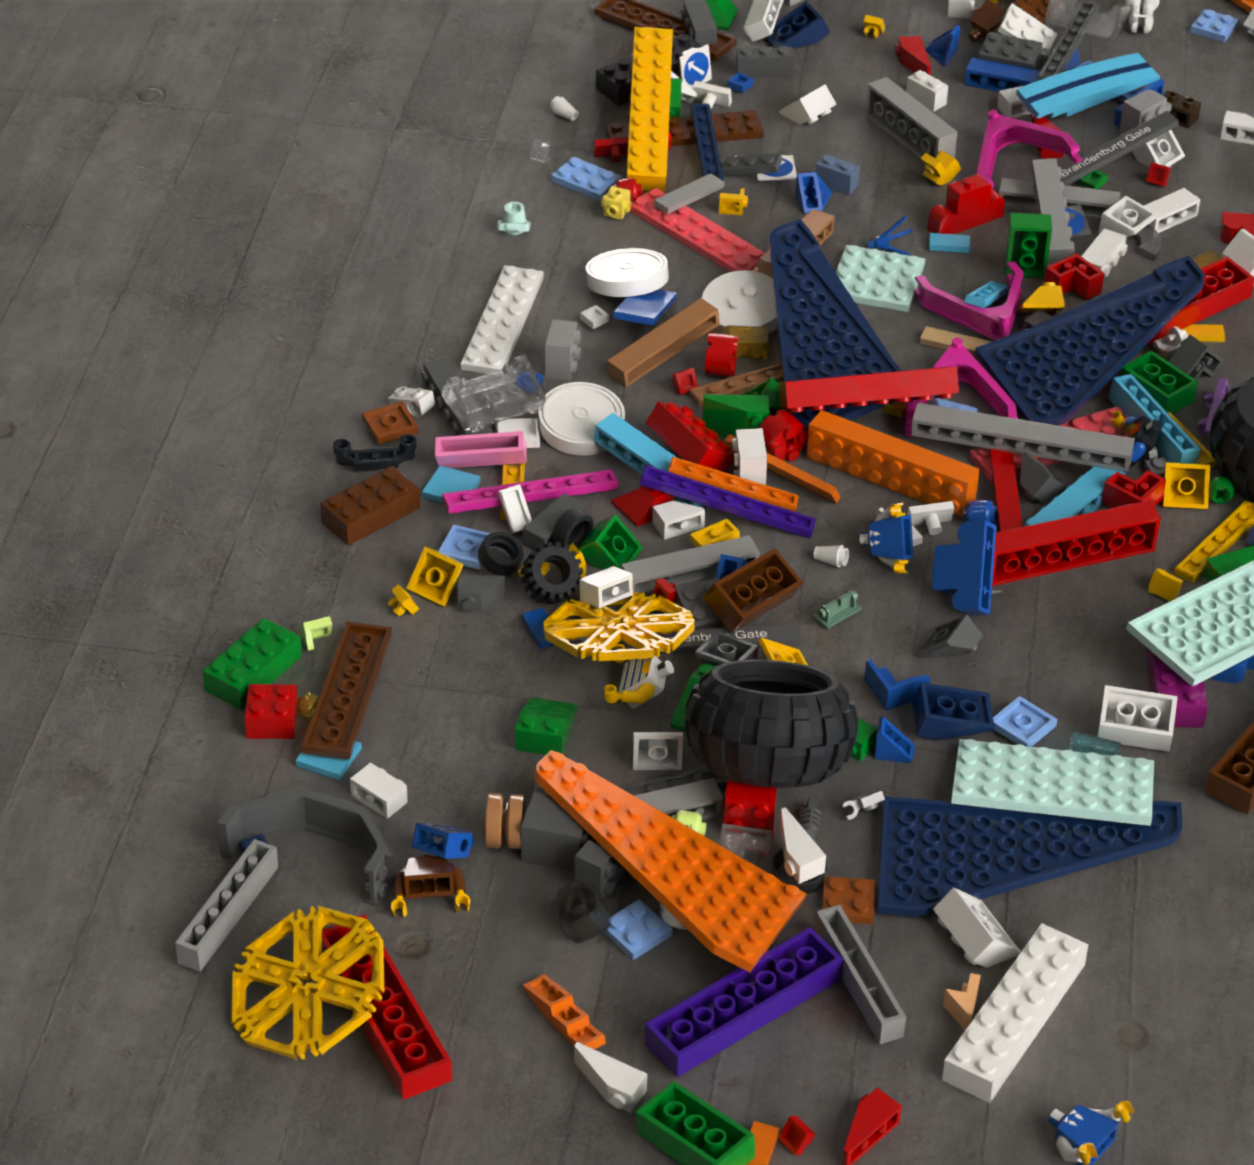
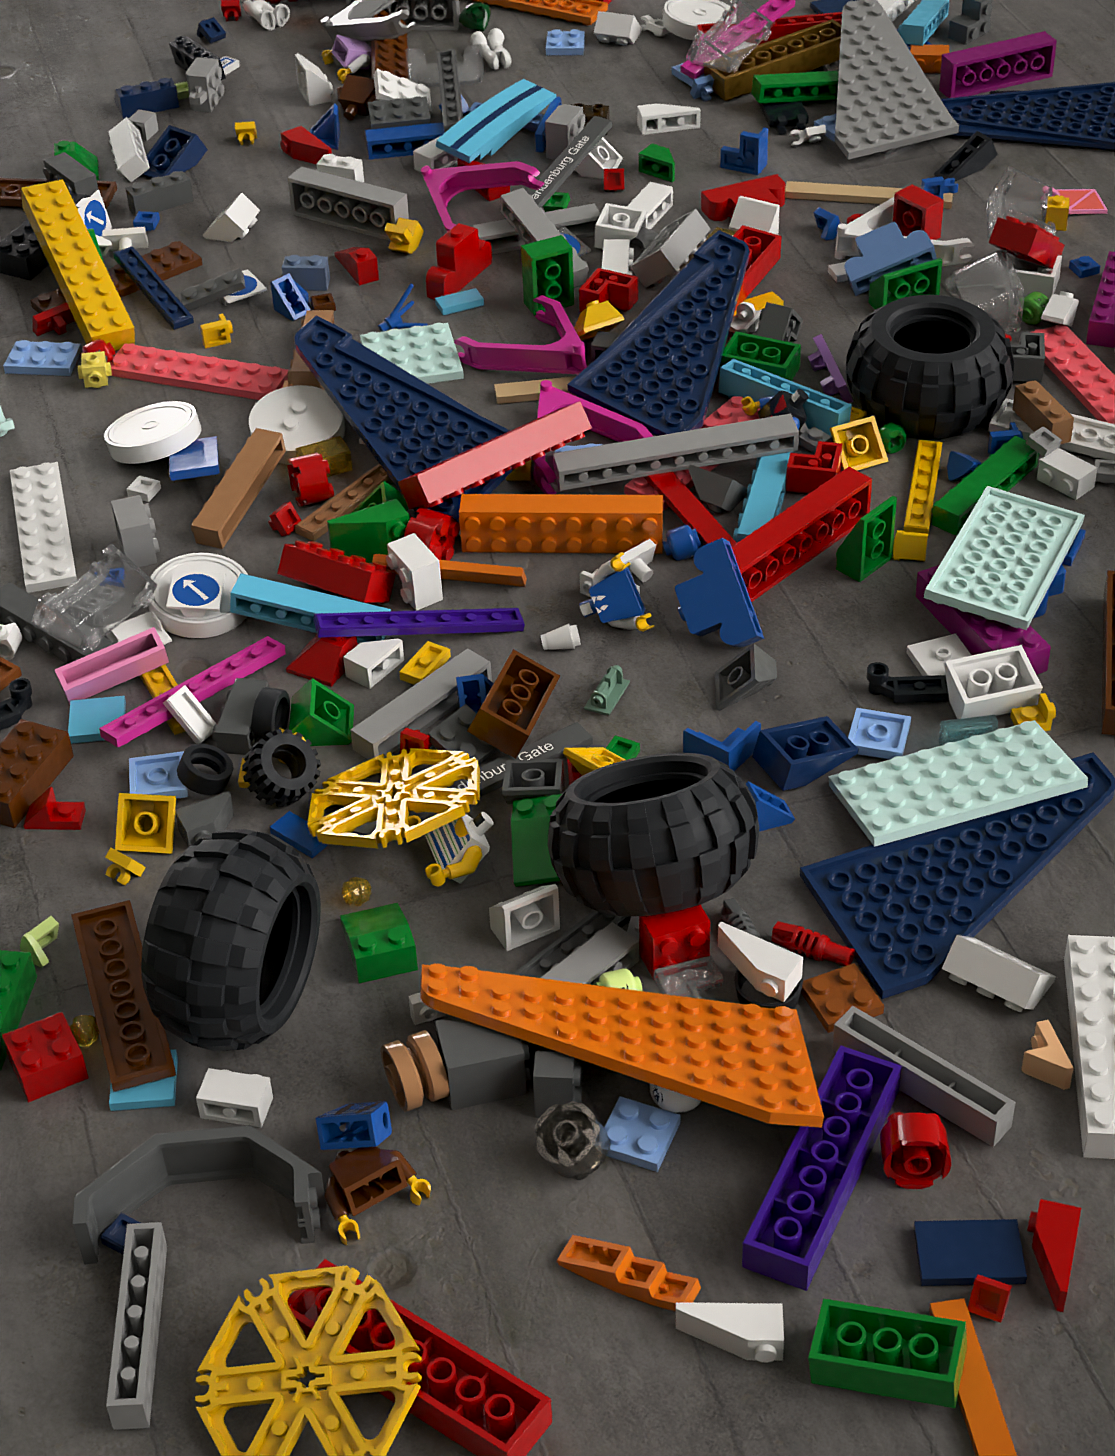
camera: 25 degrees left, 0 degrees up
(379, 546) = (53, 815): none -> red slope
(423, 677) = (231, 939): none -> black tyre
(553, 684) = (356, 891): none -> clear yellow plate
(573, 415) = (195, 592): none -> piece
(606, 587) = (350, 760): white brick -> none
(688, 193) = (166, 337): light grey tile -> none
(734, 484) = (412, 601): orange tile -> none
(813, 1101) = (961, 1249): none -> dark blue tile
(814, 1018) = (915, 1149): none -> red brick
(817, 657) = (624, 748): none -> green plate
(836, 206) = (323, 302): none -> reddish brown tile
(853, 853) = (811, 944): none -> red hinge
(866, 801) = (782, 881): light grey plate -> none
(888, 181) = (359, 263): none -> red slope
(987, 294) = (537, 333): medium azure tile -> none
(1072, 696) = (907, 688): none -> black plate
(1121, 677) = (932, 654): none -> white plate
(1126, 569) = (869, 542): none -> green slope
(1154, 254) = (670, 249): none -> light grey brick
(1162, 757) = (1041, 713): none -> yellow bracket
(1208, 170) = (657, 162): none -> green slope

